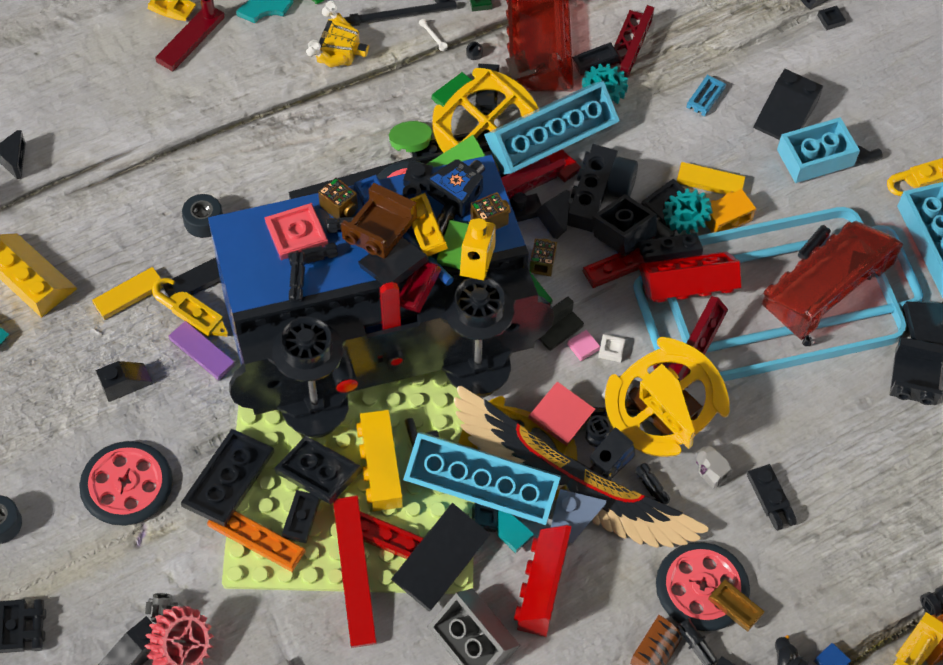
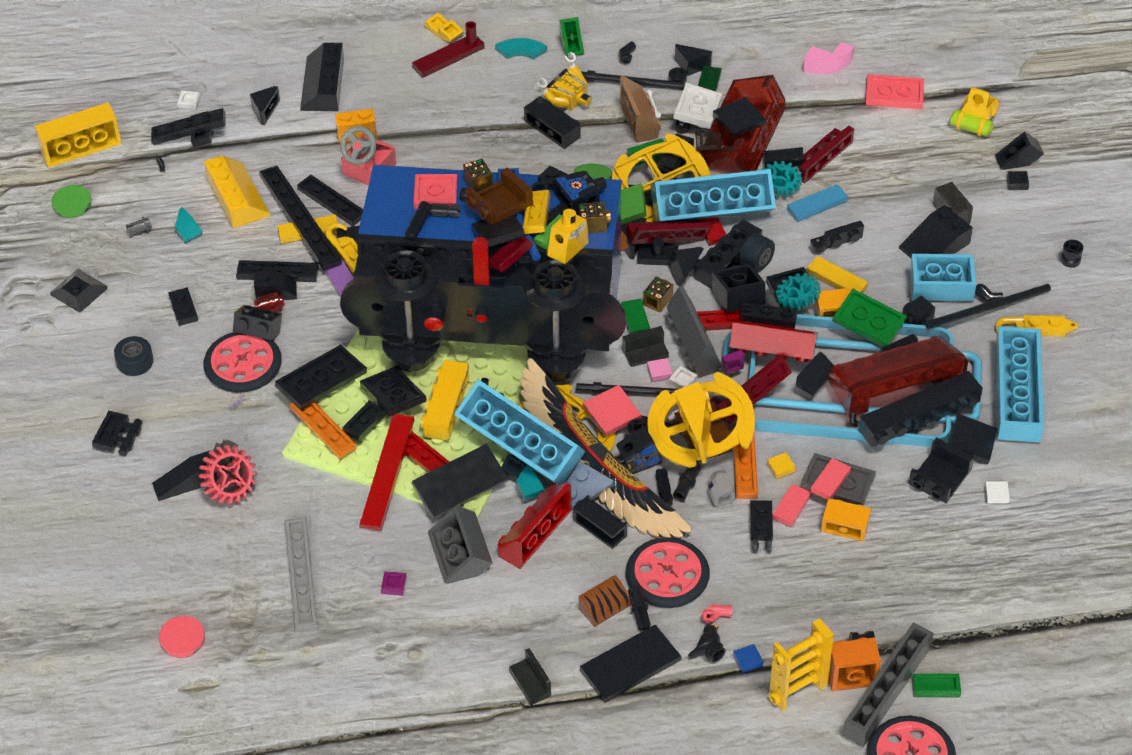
camera: 25 degrees right, 10 degrees down
(27, 435) = (183, 306): none -> black plate
(64, 104) = (323, 78): none -> black slope
(115, 283) = (300, 218): none -> black tile
(124, 431) = (257, 322): none -> black brick
(126, 402) = (270, 302): none -> clear red brick
(128, 151) = (355, 118): none -> light orange brick
(134, 350) = (294, 270): none -> black tile
(138, 249) = (331, 200): none -> black tile
(159, 189) = (364, 153): none -> piece
(339, 86) = (552, 122): none -> black brick
(425, 48) = (638, 111): none -> medium nougat slope
(484, 25) = (697, 105): none -> white plate
(530, 388) = (598, 388): none -> black bar
(536, 27) = (739, 117): none -> black tile
(603, 294) = (692, 334): none -> dark grey slope
(607, 552) = (599, 522): none -> black window
(651, 100) = (817, 202): none -> dark azure tile
(660, 316) = (732, 362): none -> magenta tile
(674, 475) = (686, 482): none -> black pin
(692, 134) = (838, 236): none -> black hinge
(699, 106) = (871, 213): dark azure tile -> none
(724, 435) = (745, 471): none -> orange tile
(736, 605) = (686, 591): pearl gold tile -> none
(749, 302) = (814, 374): none -> black slope
(758, 417) = (781, 465): none -> yellow tile
(772, 220) = (869, 318): none -> green tile
(773, 616) = (714, 611): none -> coral arm
(783, 57) = (951, 197): none -> clear smoke brick
(790, 461) = (791, 505): none -> coral tile
(810, 197) = (919, 311): none -> black brick
(820, 420) = (830, 479): none -> coral tile
(824, 417) = (853, 489): none -> dark grey plate
(854, 460) = (846, 519): none -> light orange brick
(869, 172) = (987, 306): none -> black piece
(870, 310) = (920, 409): none -> black brick
(923, 84) = (1072, 253): none -> black wheel

